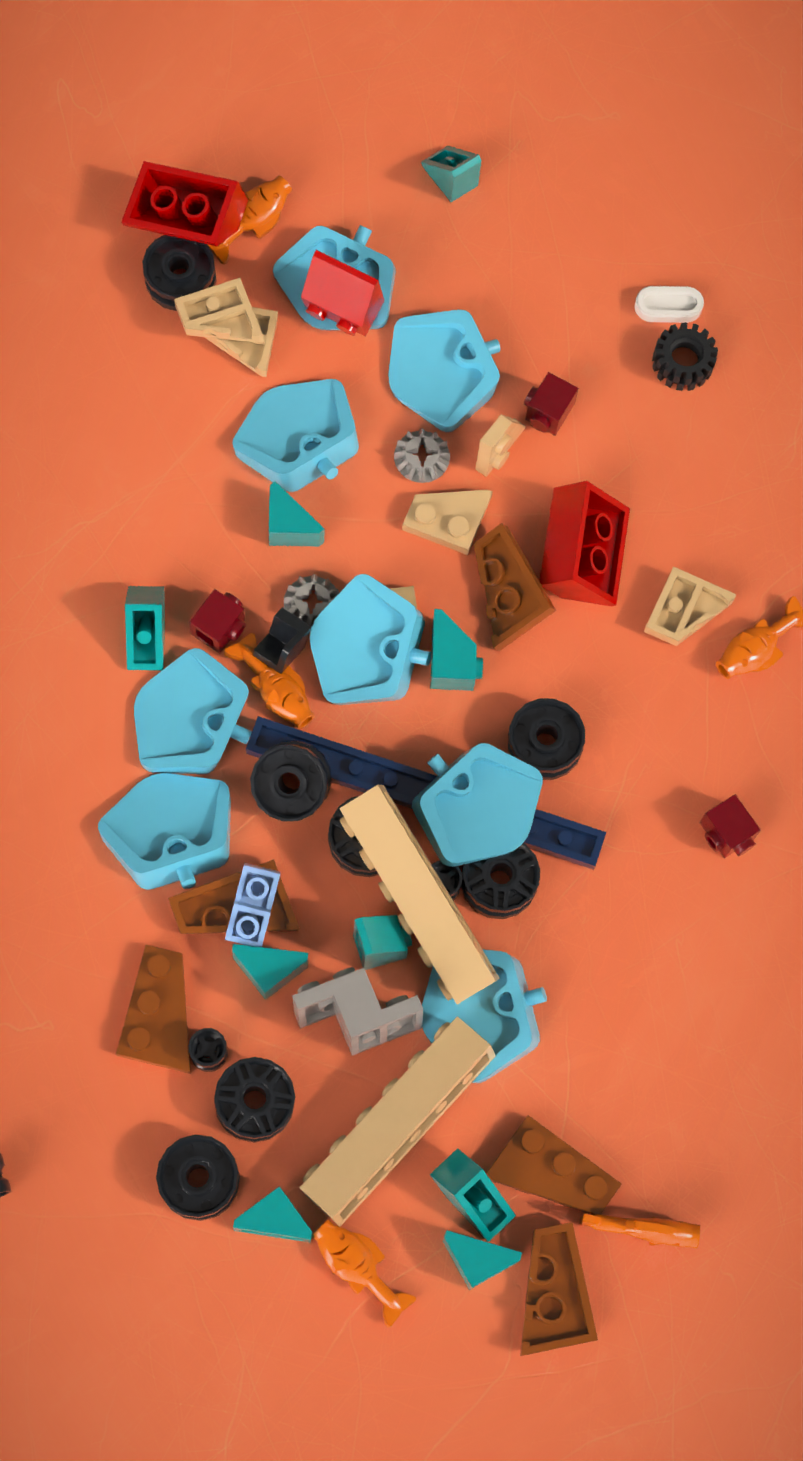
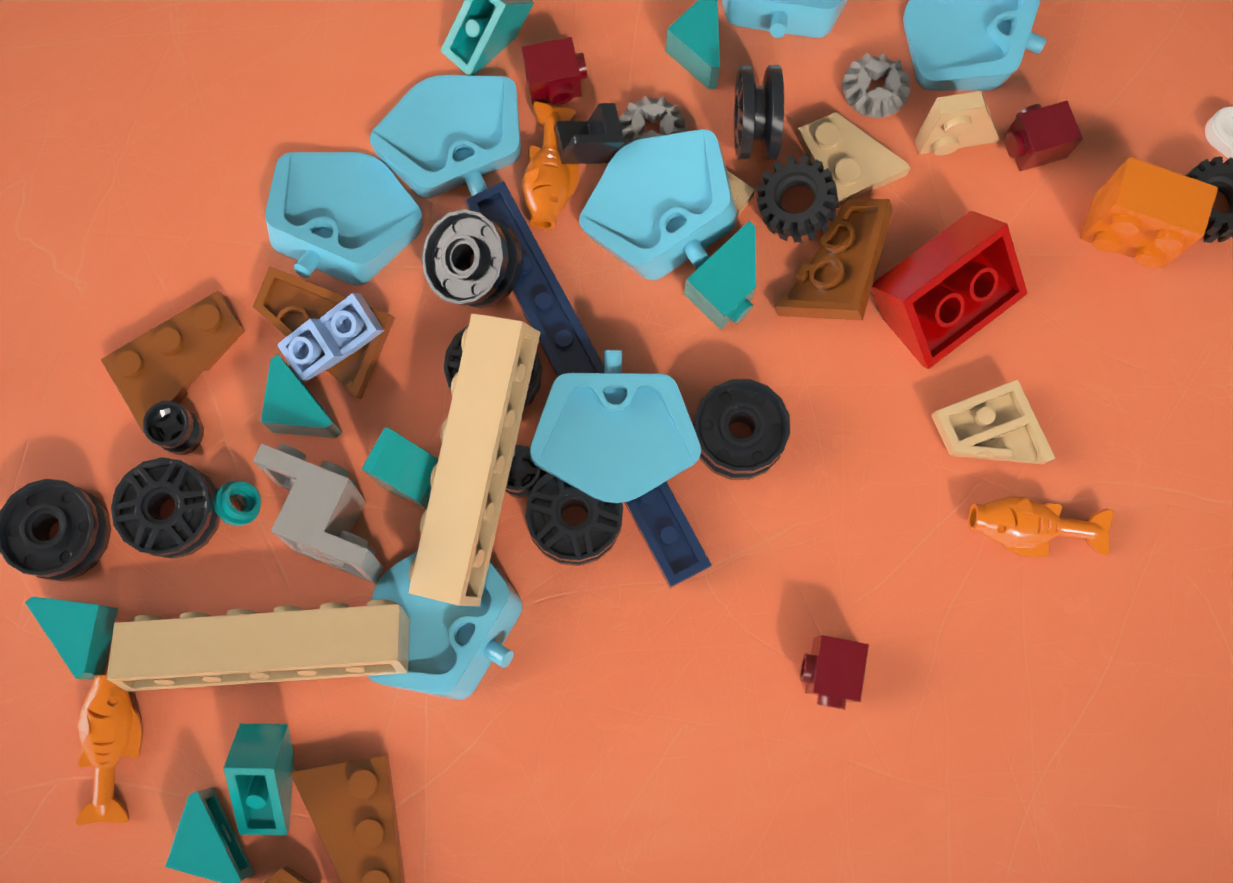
camera: 50 degrees right, 5 degrees up
(293, 1056) = (247, 497): none -> teal plate
(375, 537) = (758, 112): none -> black wheel
(446, 548) = (792, 175): none -> black tyre
(656, 403) = (1148, 213): none -> orange brick

